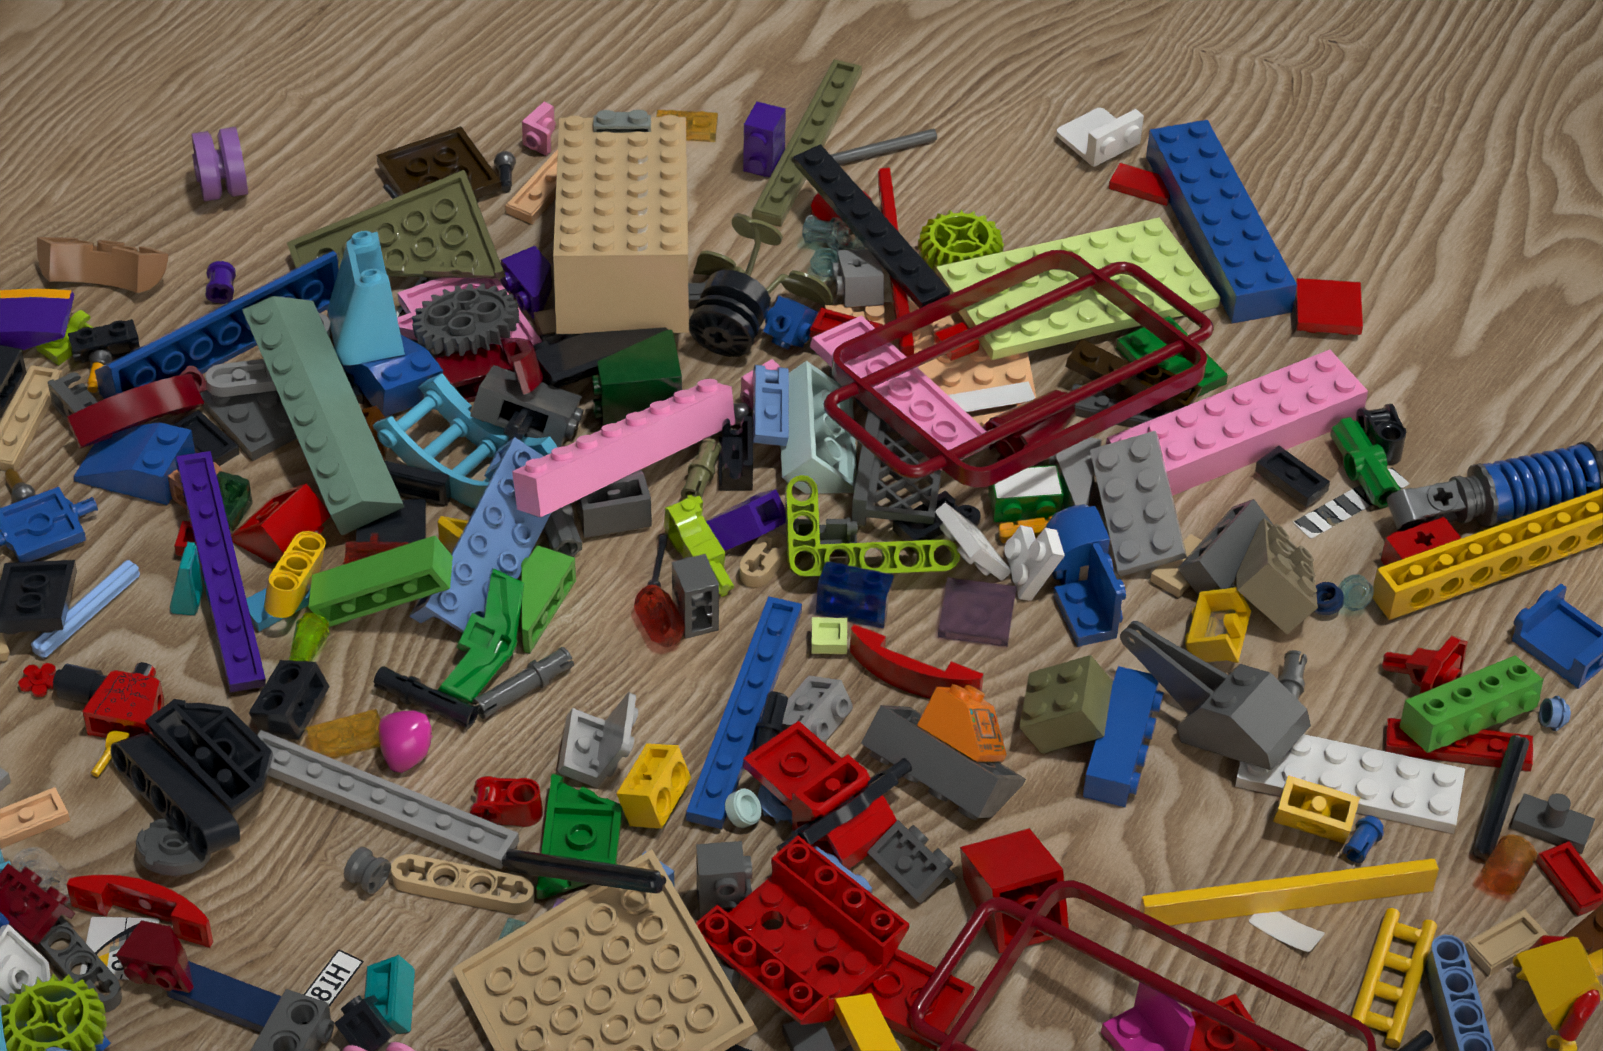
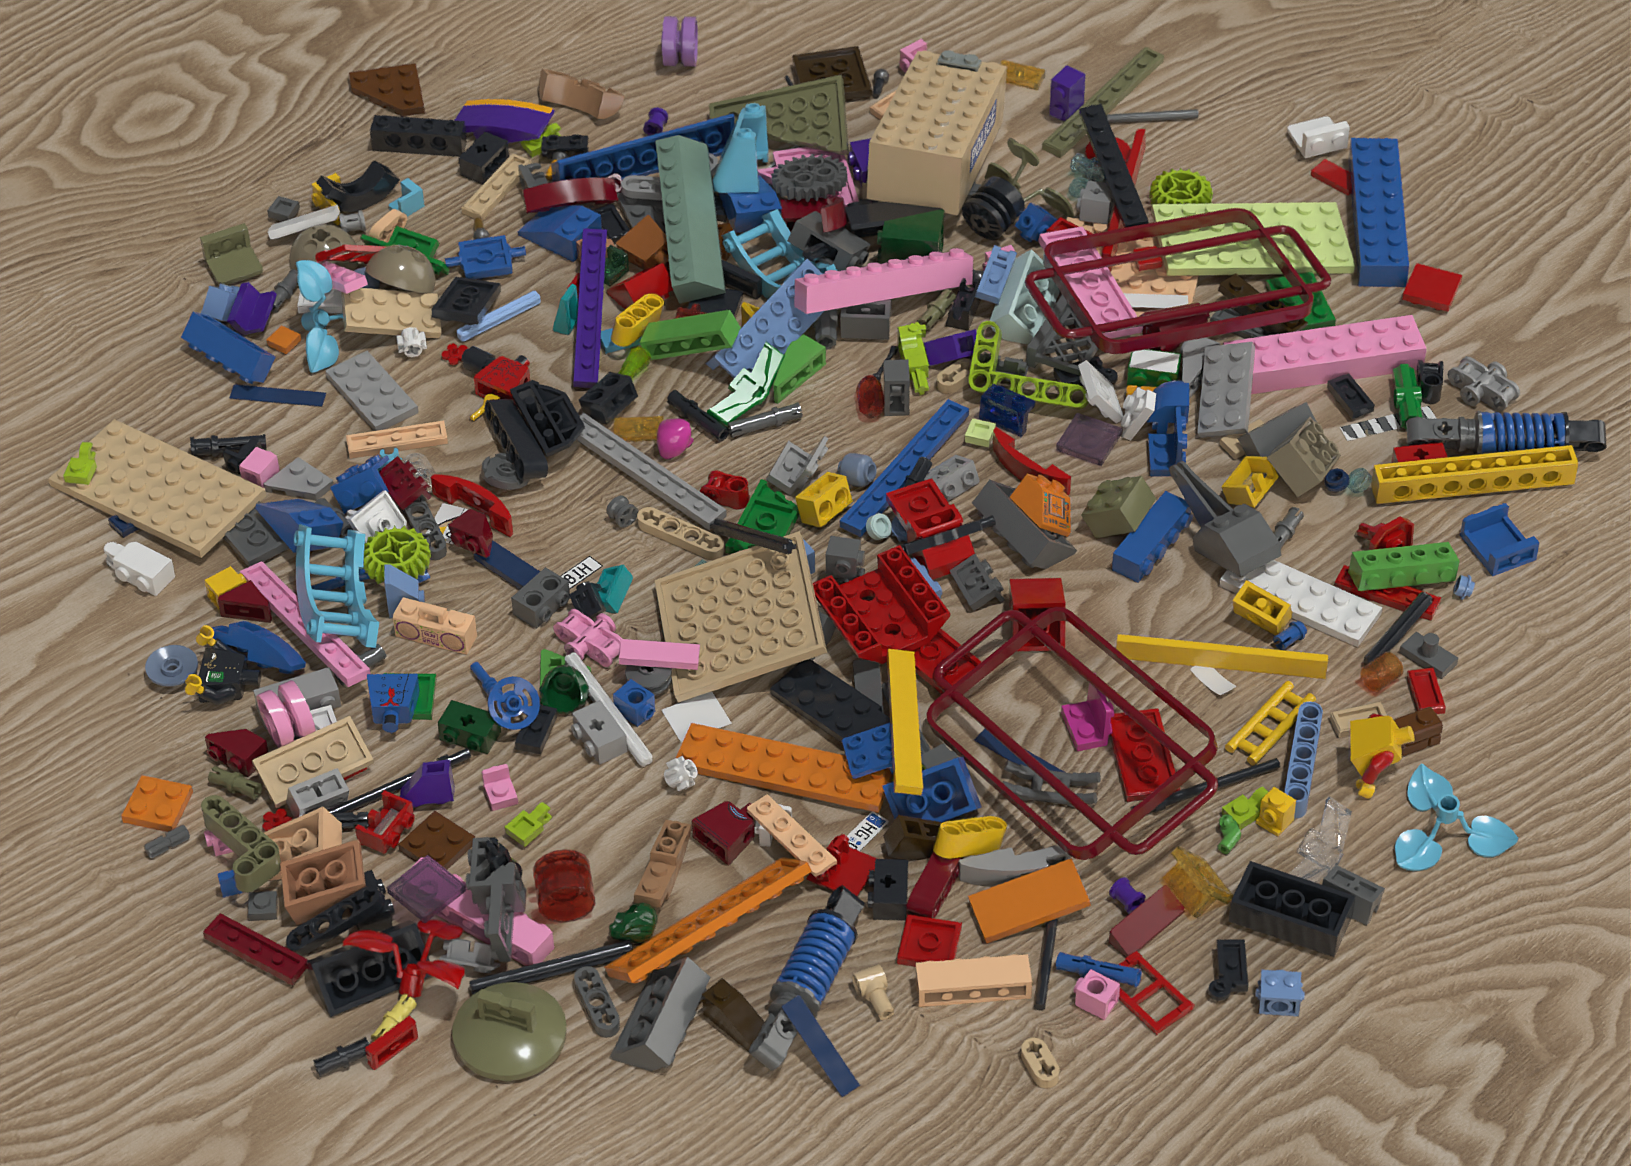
camera: 20 degrees right, 0 degrees up
(270, 460) = (645, 244): none -> dark orange torso
(682, 727) = (858, 469): none -> sand blue head
(1459, 426) = (1483, 383): none -> light grey axle

